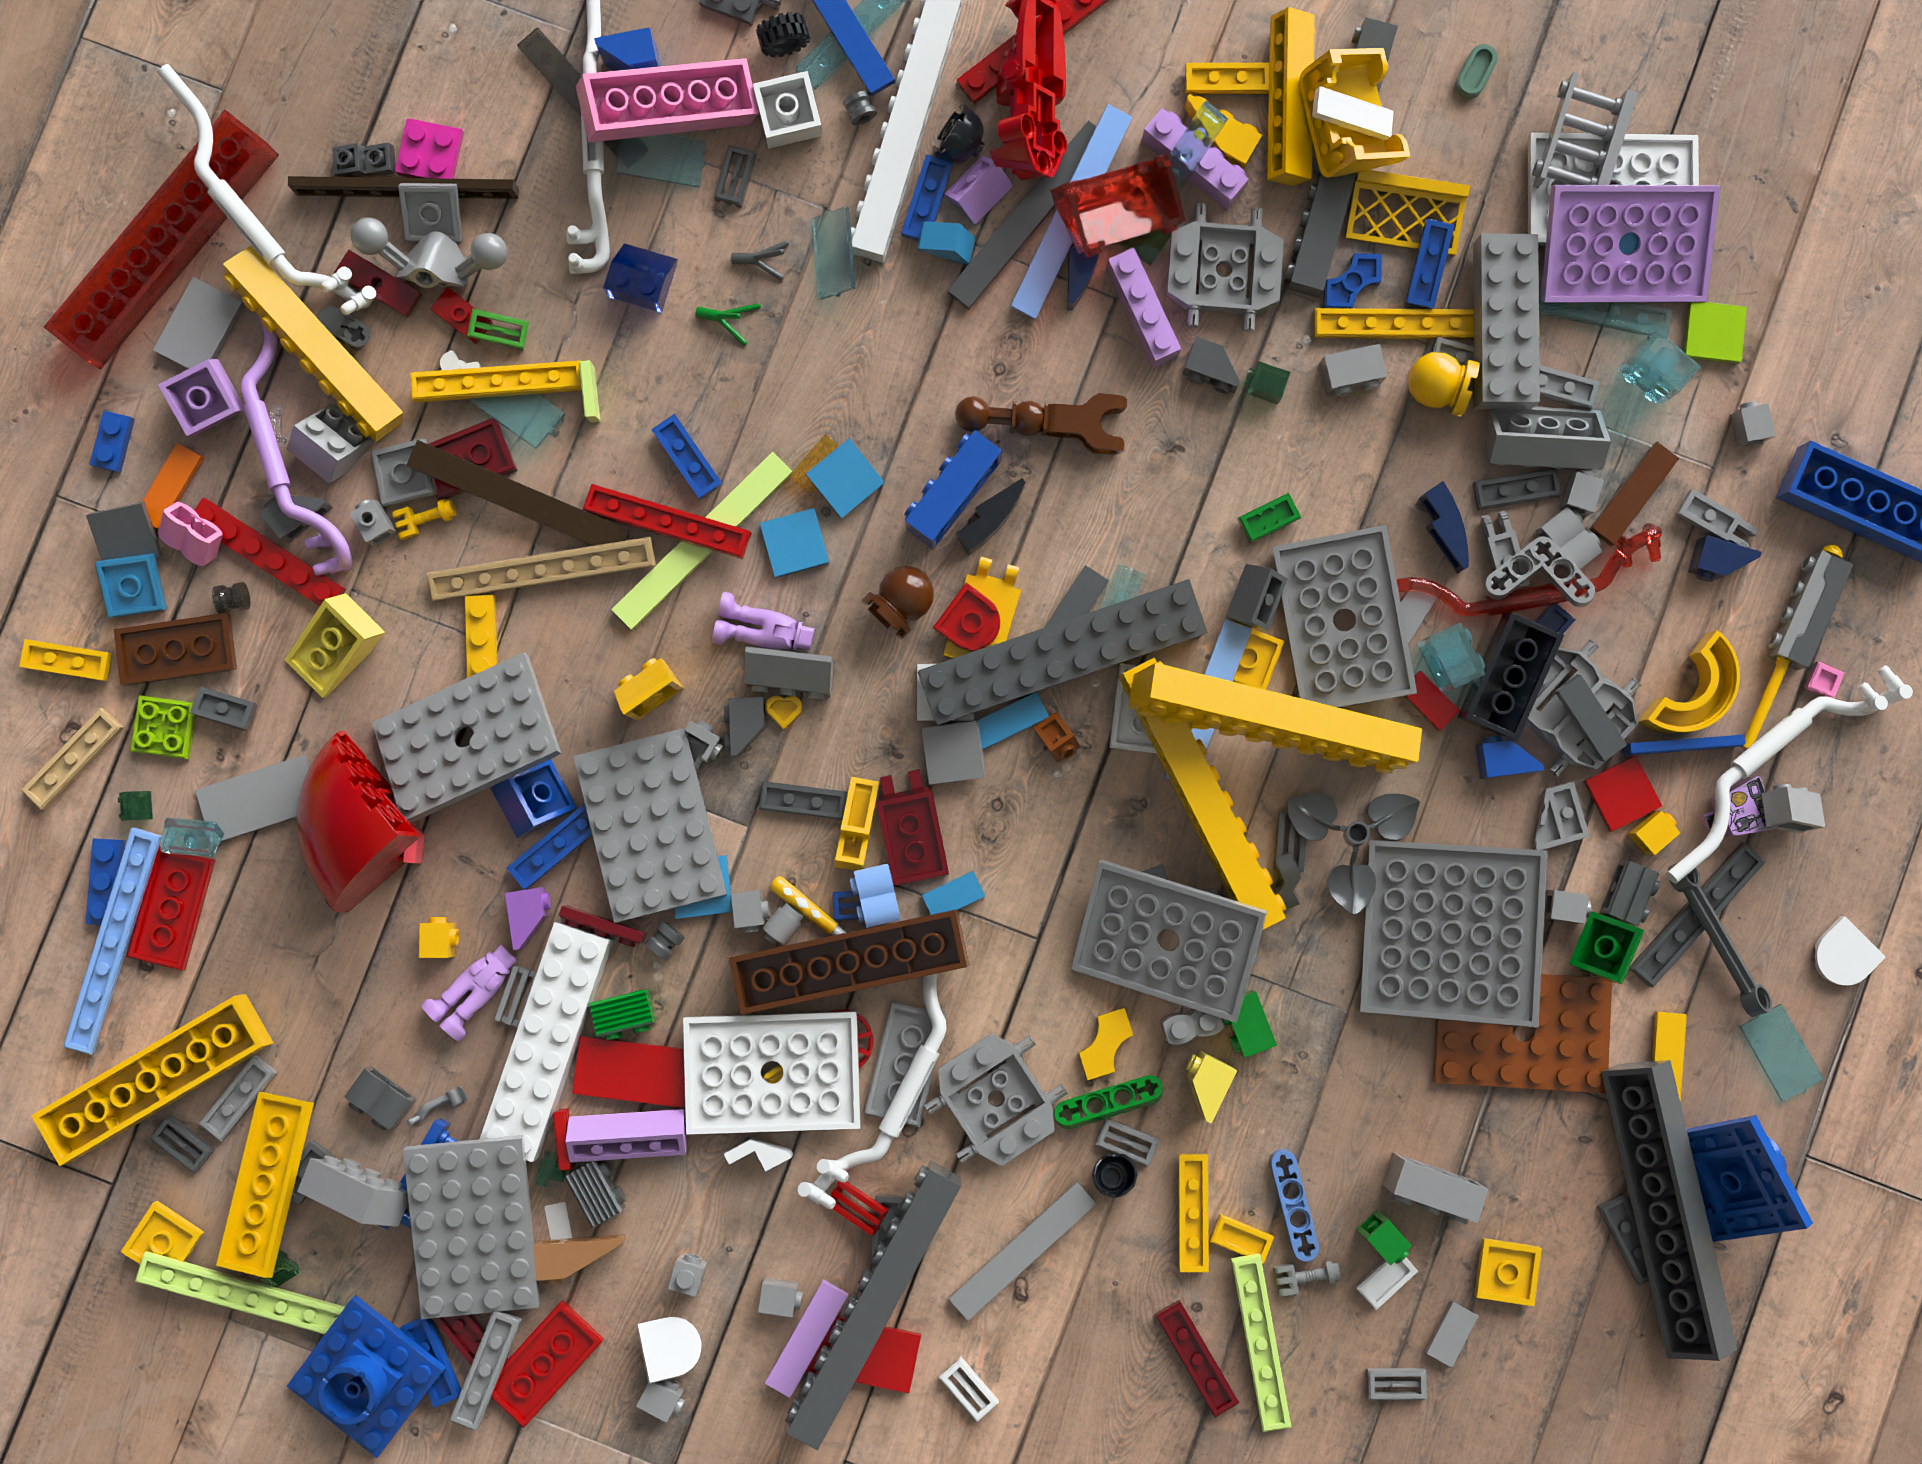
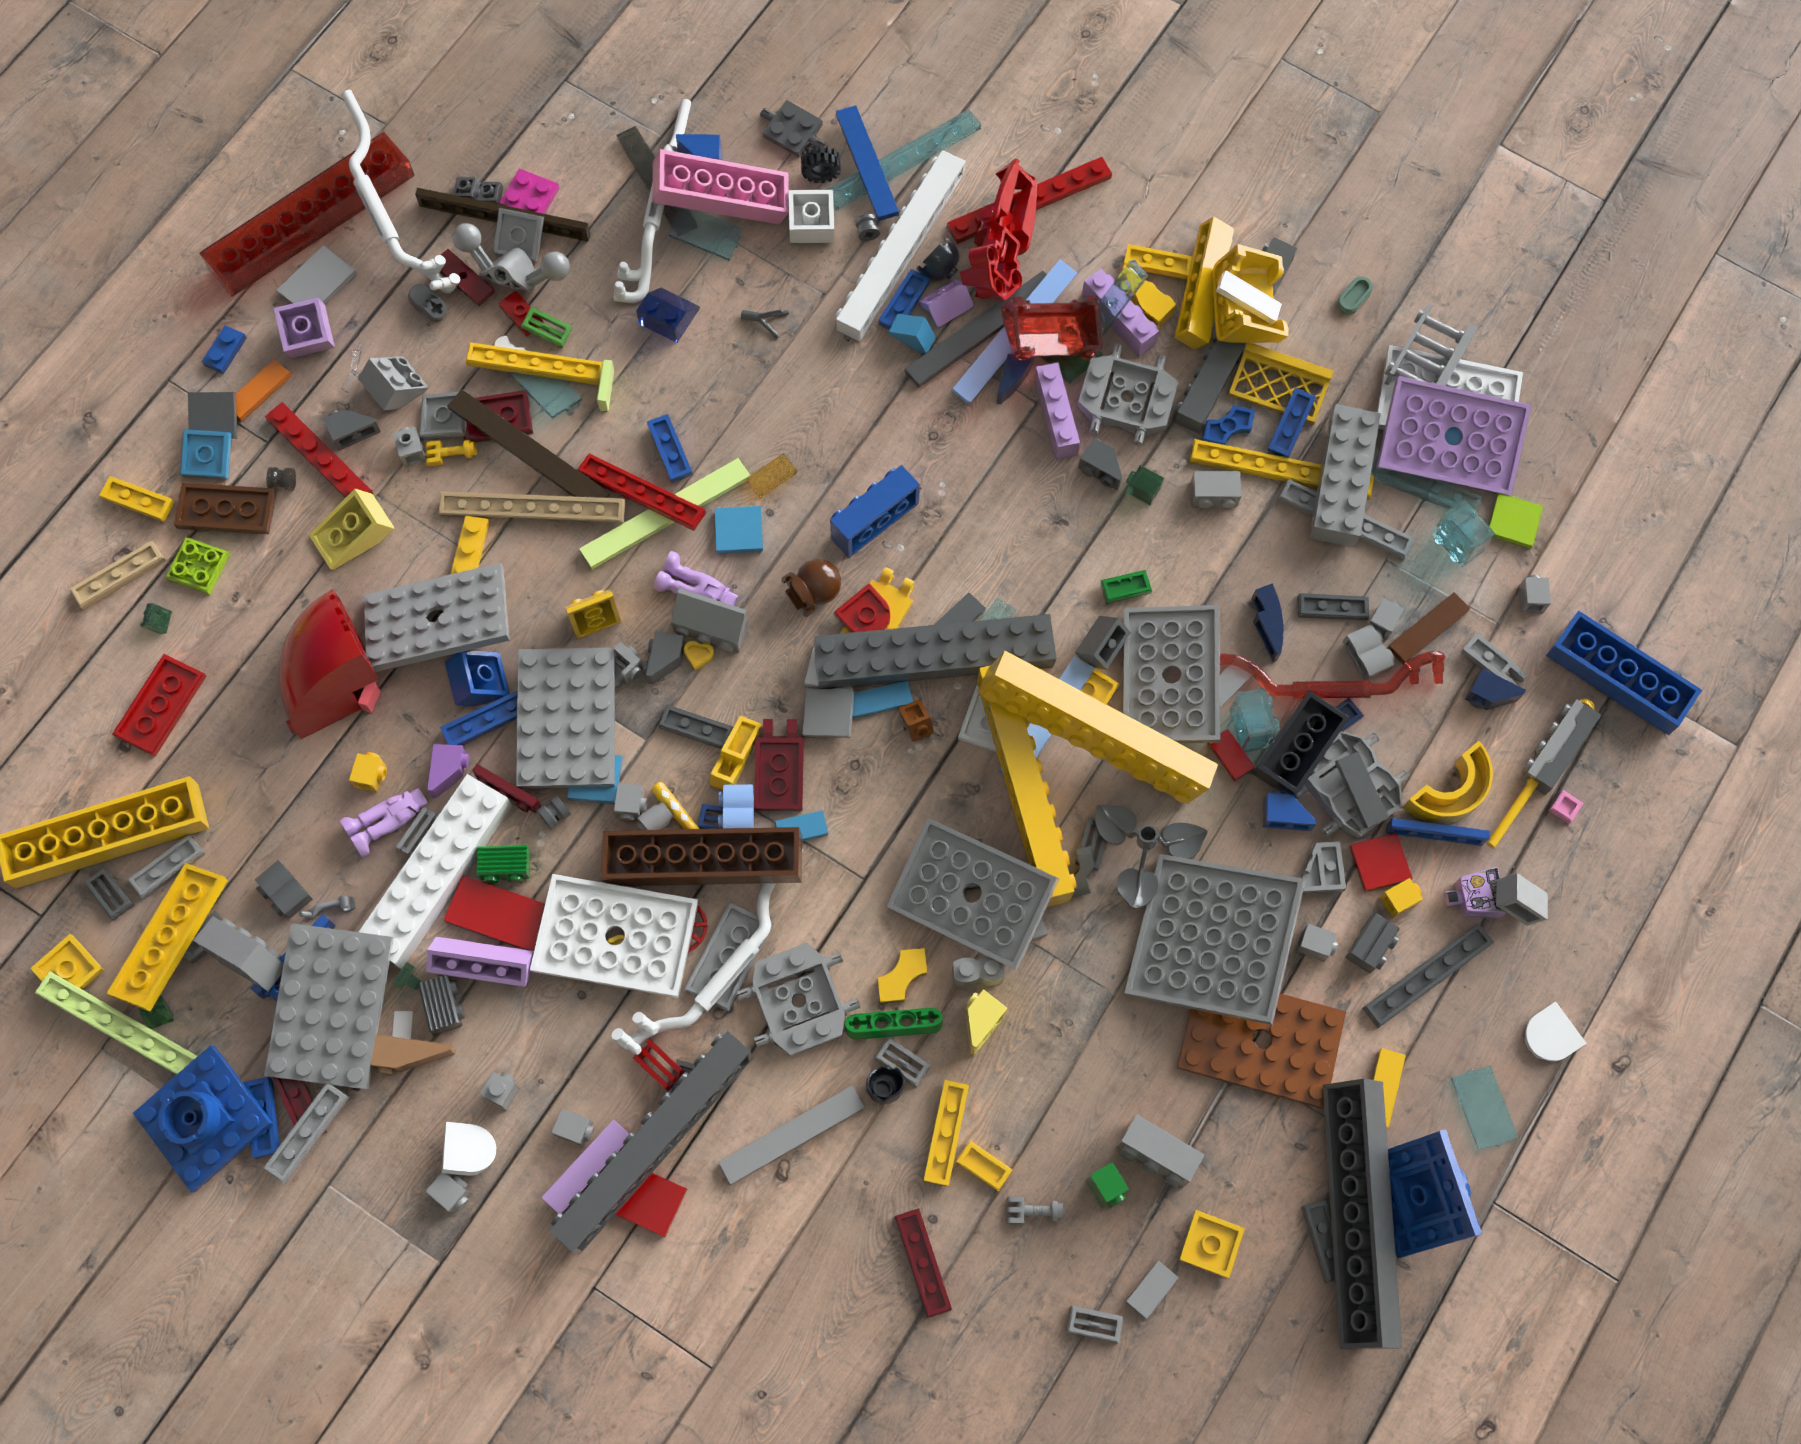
camera: 10 degrees right, 15 degrees down
(104, 866) = (113, 673): blue plate -> none
(112, 941) = (103, 719): light blue tile -> none
(190, 534) = (263, 424): bright pink brick -> none
(191, 837) = (193, 649): clear light blue slope -> none
(223, 709) = (249, 560): dark grey plate -> none
(254, 798) = (248, 635): light grey tile -> none
(275, 469) = (344, 380): lavender piece -> none
(312, 343) = (400, 308): yellow brick -> none
(544, 1363) = (356, 1143): red tile -> none
(561, 1120) = (428, 936): red tile -> none
(719, 316) = (715, 350): green plant -> none
(729, 198) = (752, 271): dark grey tile -> none
(767, 1152) = (595, 1004): white slope -> none
(833, 253) = (822, 324): clear light blue piece -> none
(845, 478) = (790, 488): dark azure tile -> none
(952, 1370) = (727, 1266): white tile -> none
(991, 517) = (901, 540): black slope -> none
(1052, 420) = (968, 478): reddish brown piece -> none
(1252, 1030) = (1026, 984): green brick -> none
(1261, 1342) = (982, 1260): yellowish green tile -> none
(1298, 1203) = (1035, 1146): medium blue beam -> none
(1385, 1281) = (1103, 1229): white tile -> none
(1442, 381) = (1283, 509): yellow tile -> none
(1502, 546) = (1314, 652): light grey hinge -> none
(1538, 563) = (1339, 661): light grey beam -> none
(1547, 438) = (1363, 571): light grey slope -> none
(1606, 948) = (1342, 978): green slope -> none
(1753, 997) = (1465, 1051): dark grey piece -> none
(1771, 744) = (1516, 841): white piece -> none

